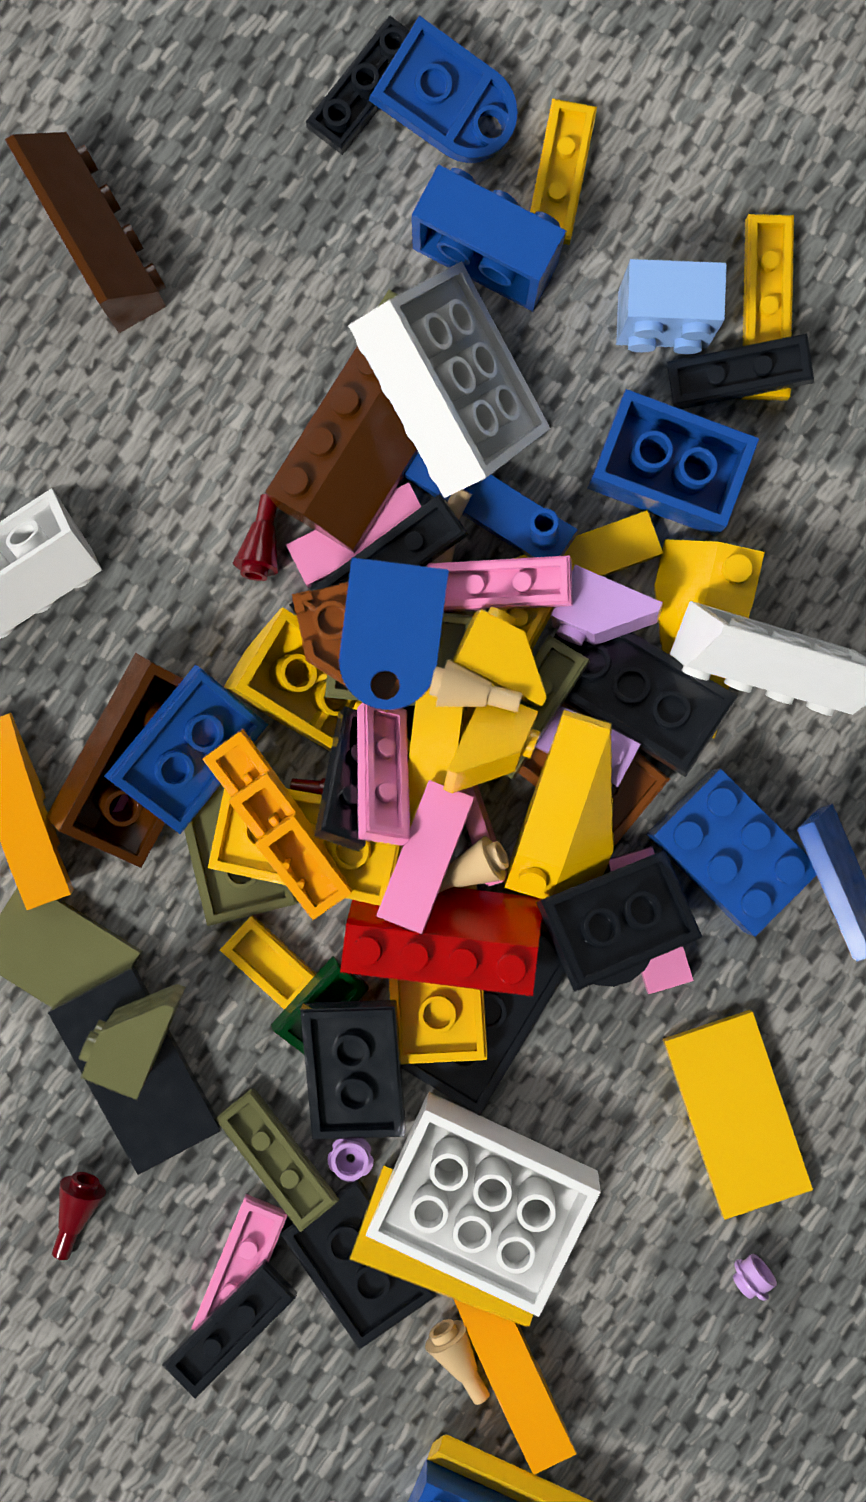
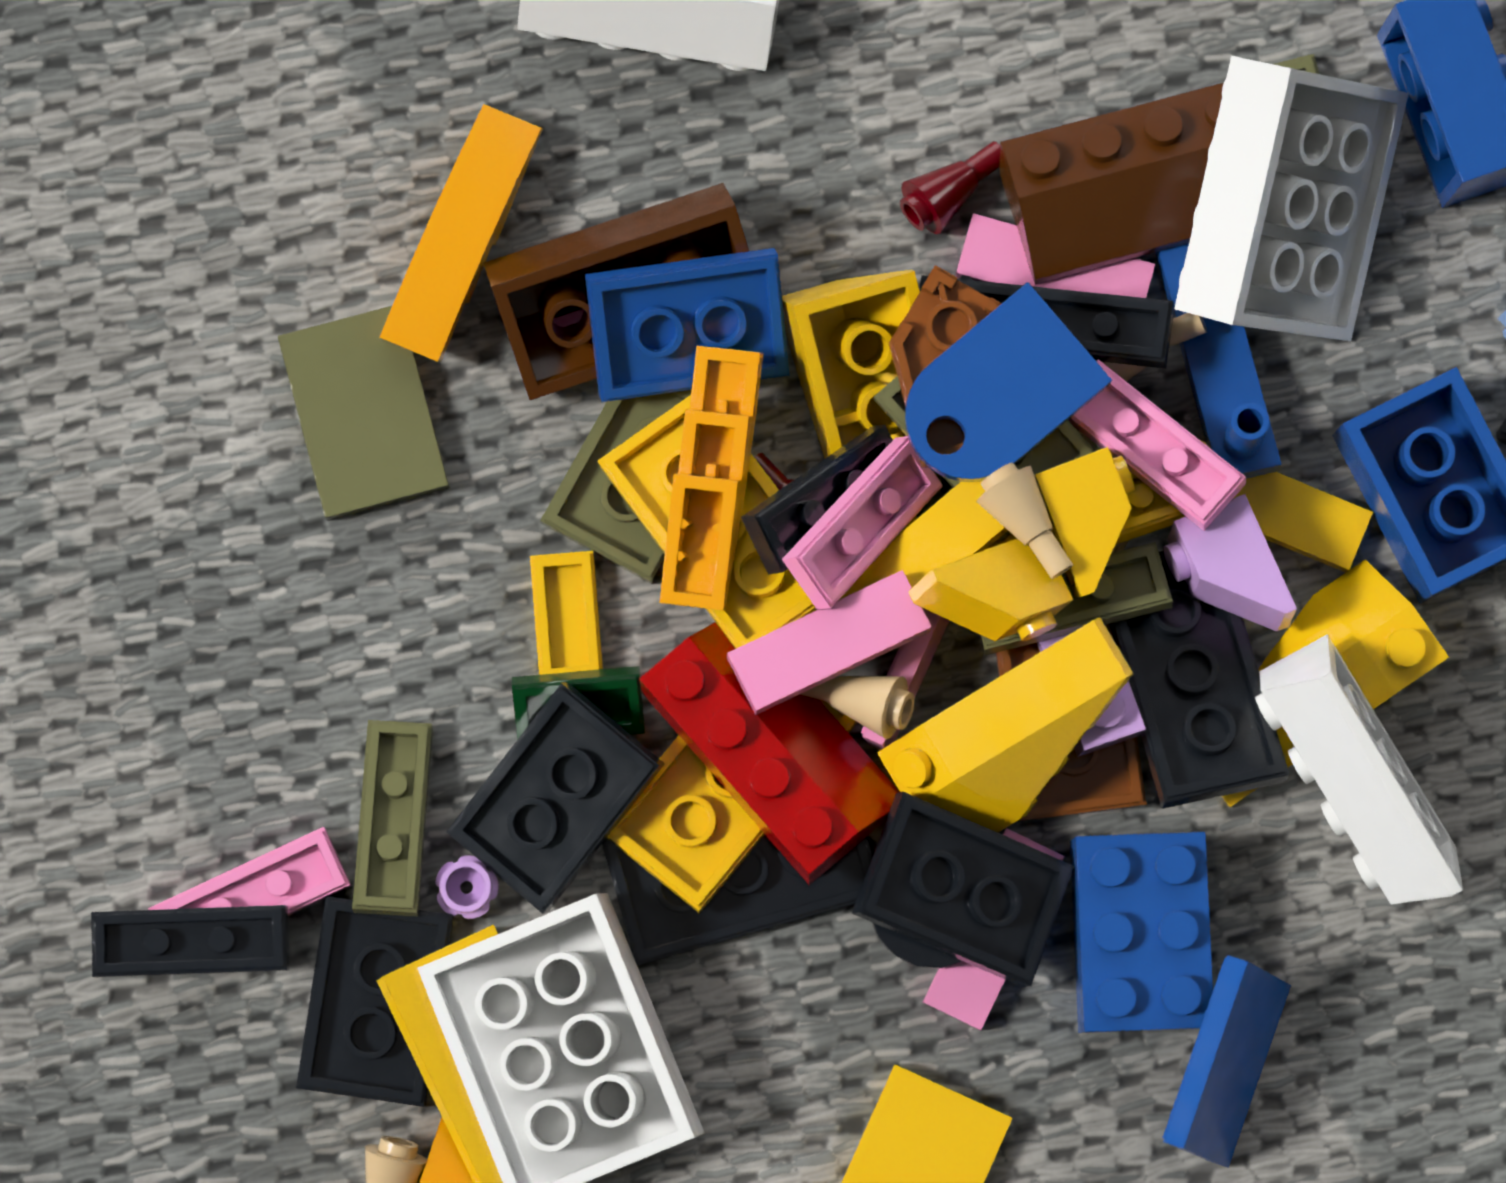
camera: 40 degrees right, 5 degrees down
(77, 1202) = (152, 677): dark red cone -> none
(127, 1045) = (371, 557): olive slope -> none
(170, 1108) = (335, 597): black tile -> none

